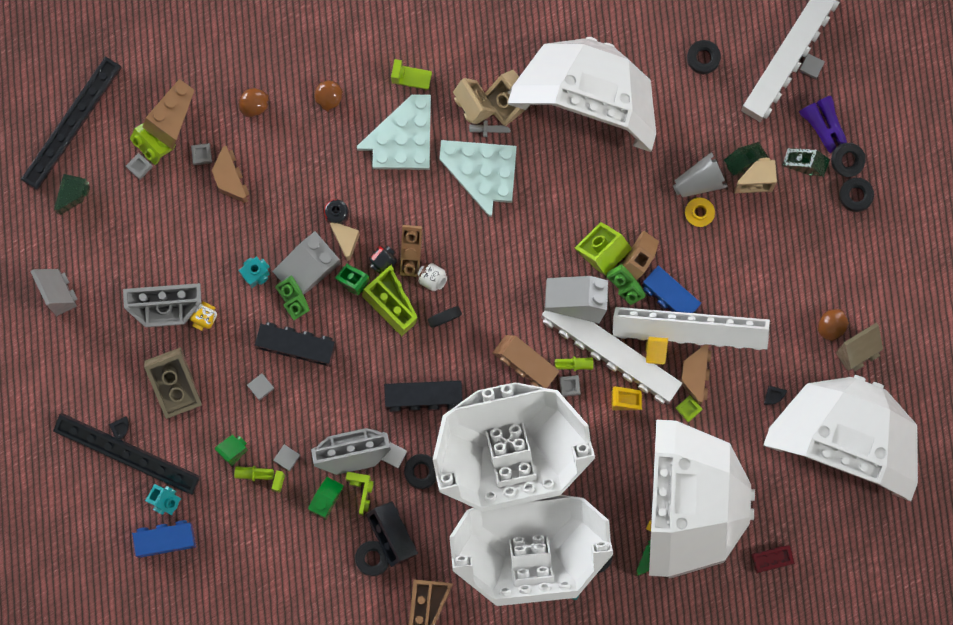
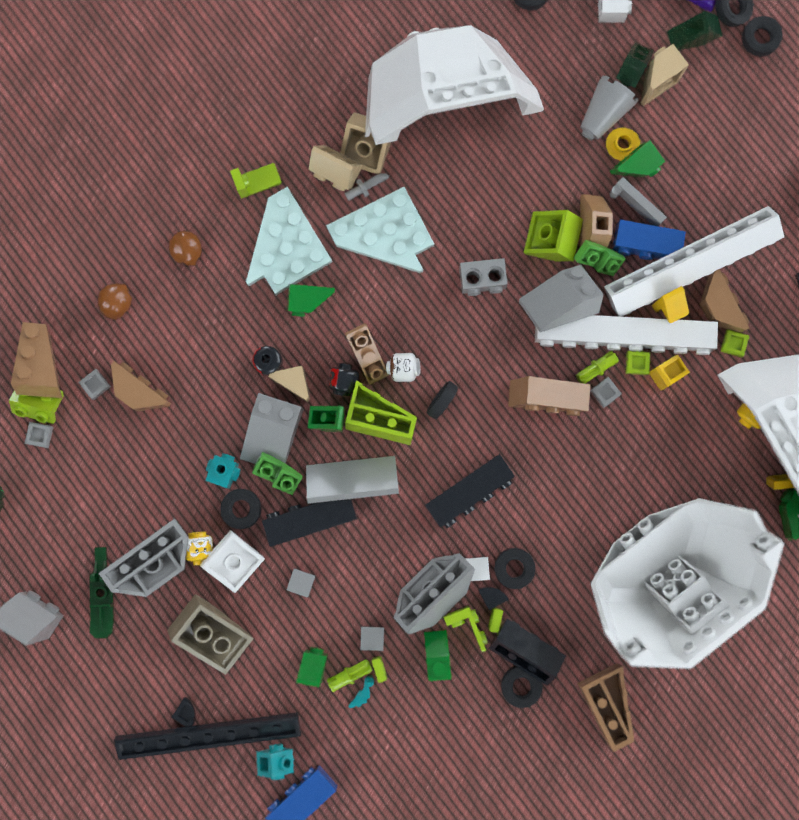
camera: 30 degrees left, 5 degrees up
(107, 317) = (100, 607): none -> dark green piece
(221, 340) = (232, 561): none -> white tile
(247, 296) = (227, 505): none -> black tyre
(255, 494) = (362, 695): none -> teal piece
(343, 334) = (351, 479): none -> light grey tile
(383, 498) = (495, 620): none -> lime tile
(392, 184) = (306, 298): none -> green slope
(392, 482) = (492, 597): none -> black tile
(510, 447) = (598, 491): white piece -> none
(535, 241) = (481, 270): none -> light grey brick
(607, 379) = (637, 362): none -> lime tile
(676, 243) = (637, 202): none -> light grey hinge
(701, 233) = (640, 162): none -> green slope

